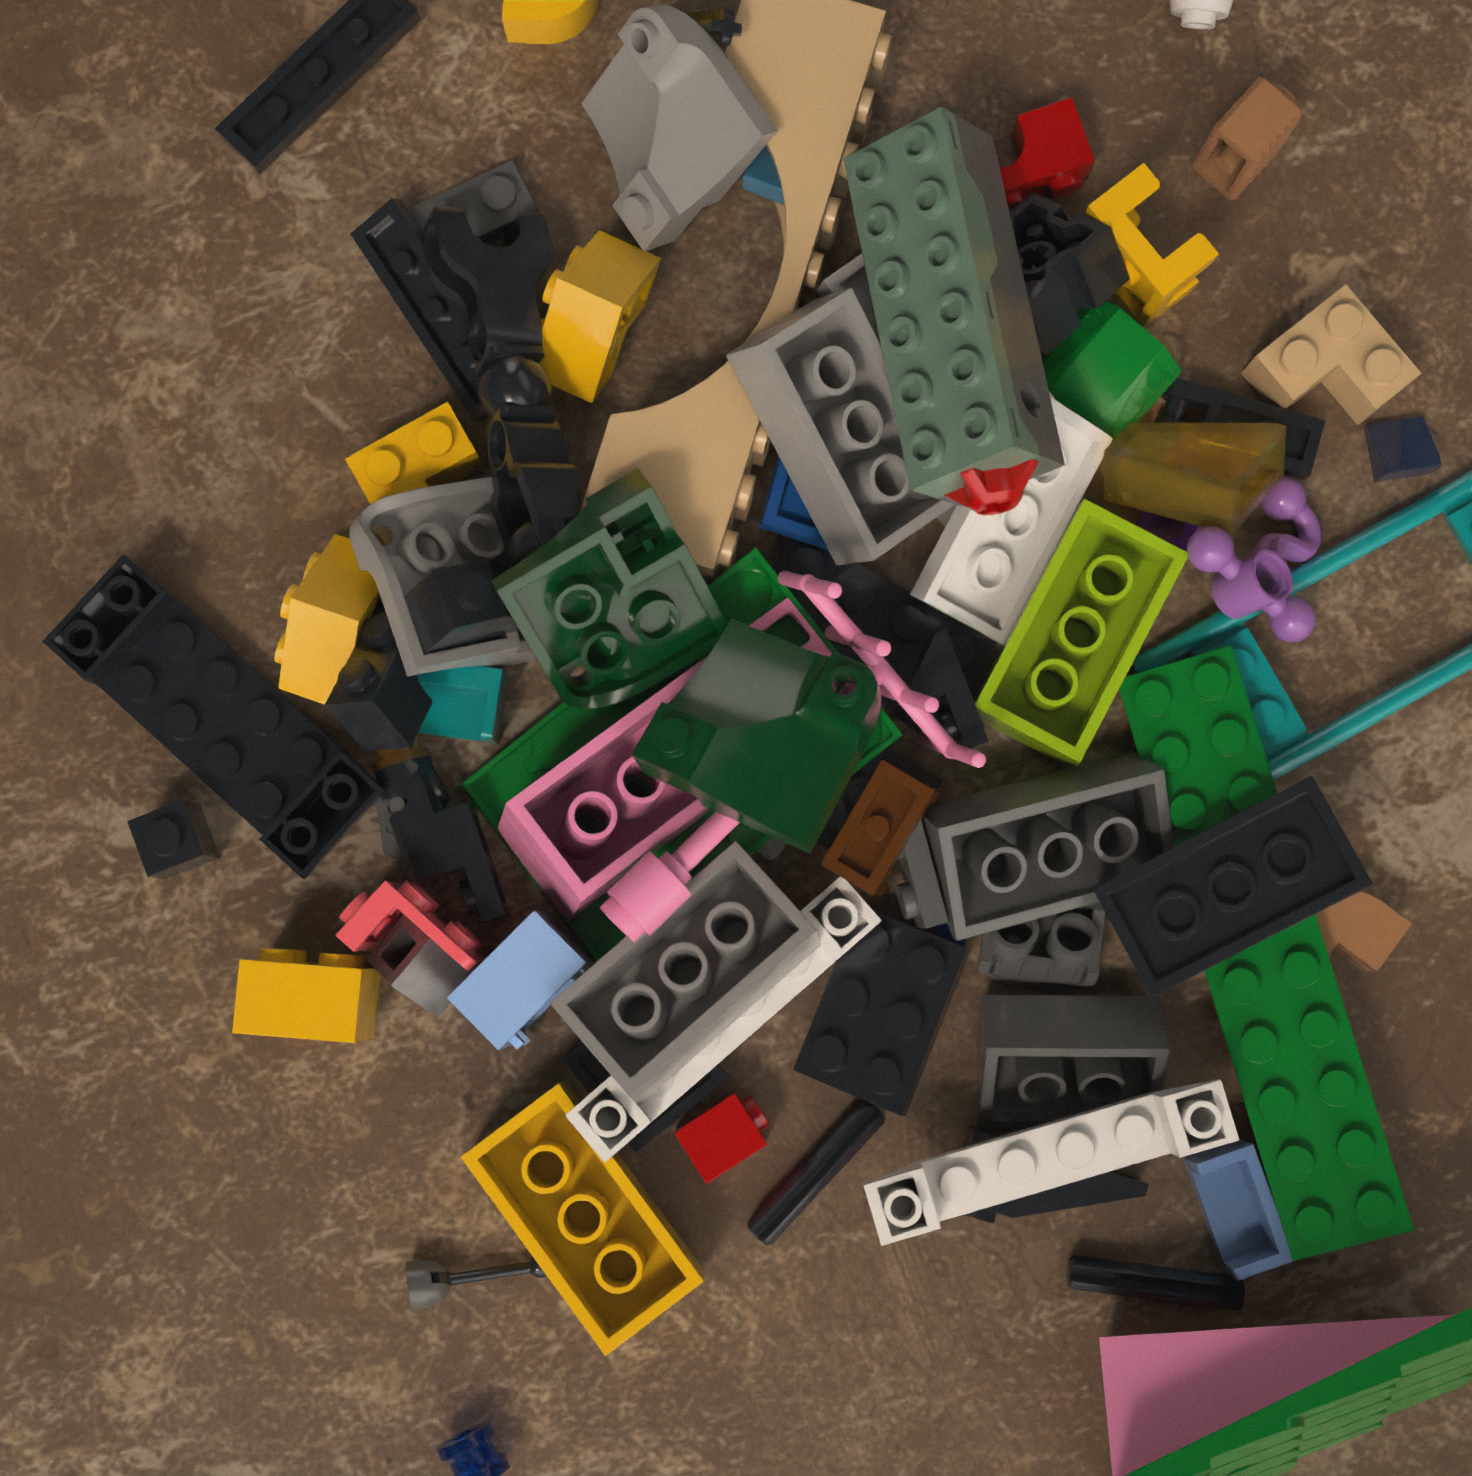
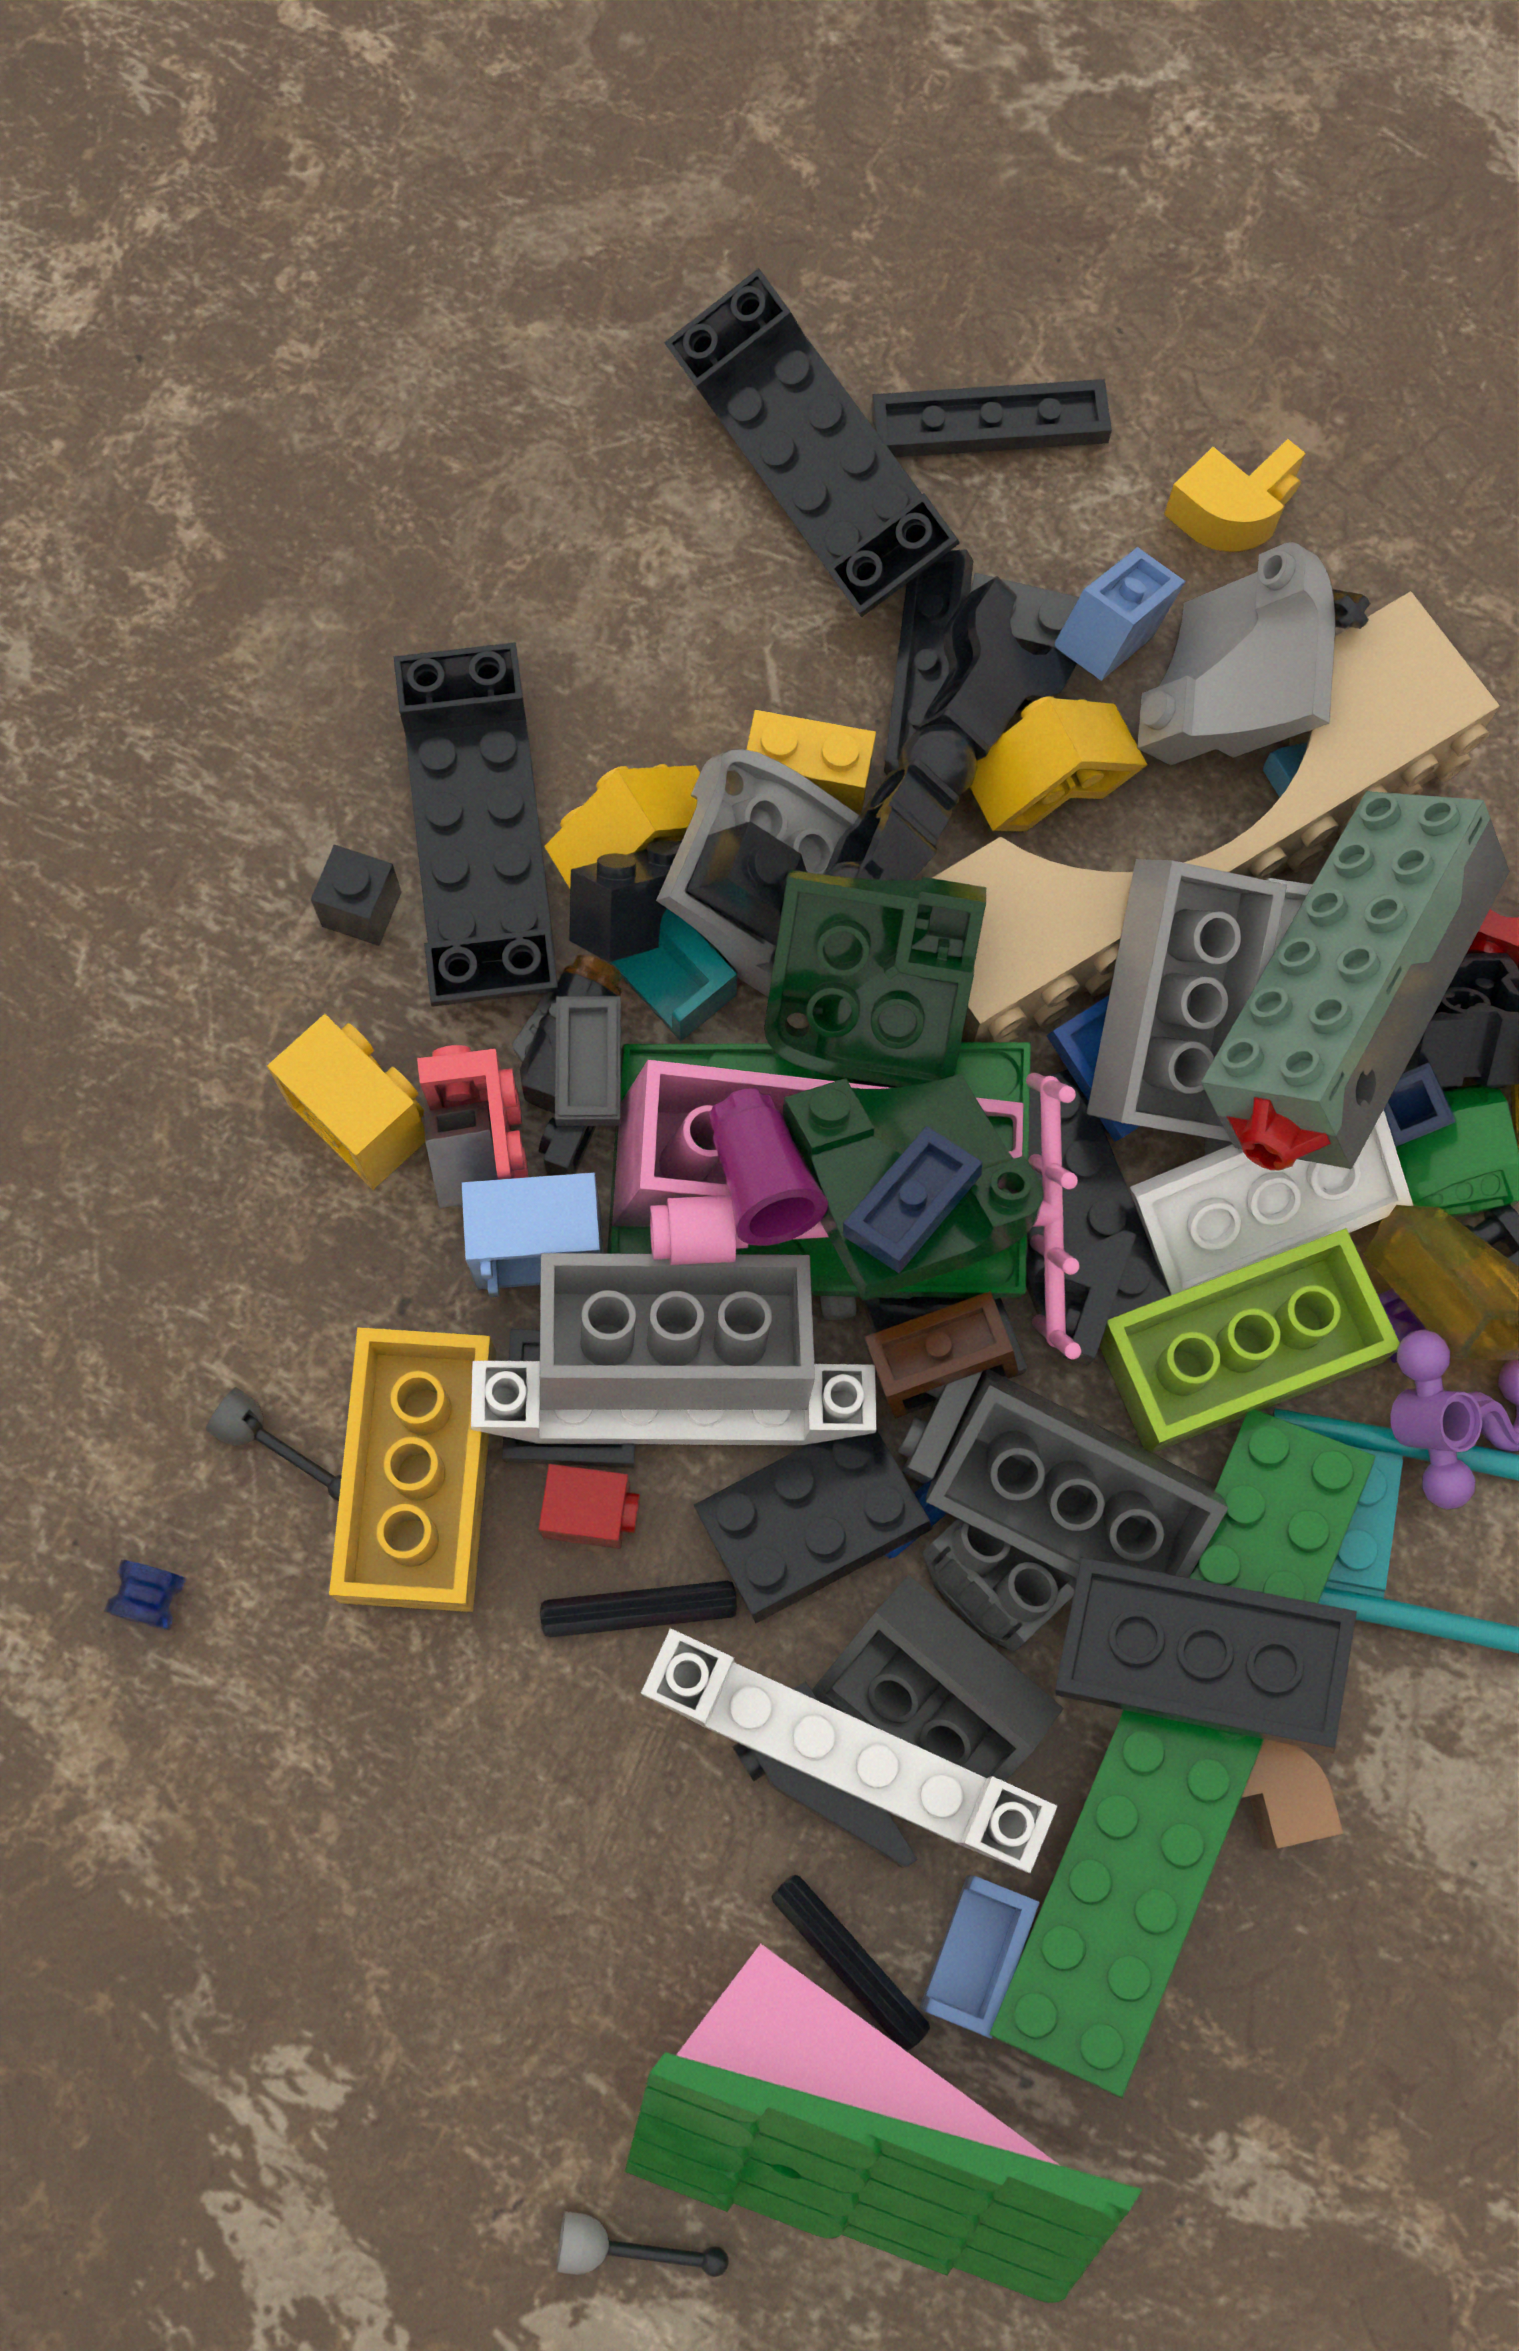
camera: 35 degrees right, 10 degrees down
(206, 209) = (811, 443): none -> black slope
(453, 825) = (588, 1061): none -> dark grey tile
(546, 158) = (1118, 613): none -> medium blue panel
(659, 817) = (764, 1171): none -> magenta plant
(786, 755) = (912, 1199): none -> dark blue plate
(1066, 366) = (1417, 1105): none -> dark blue slope

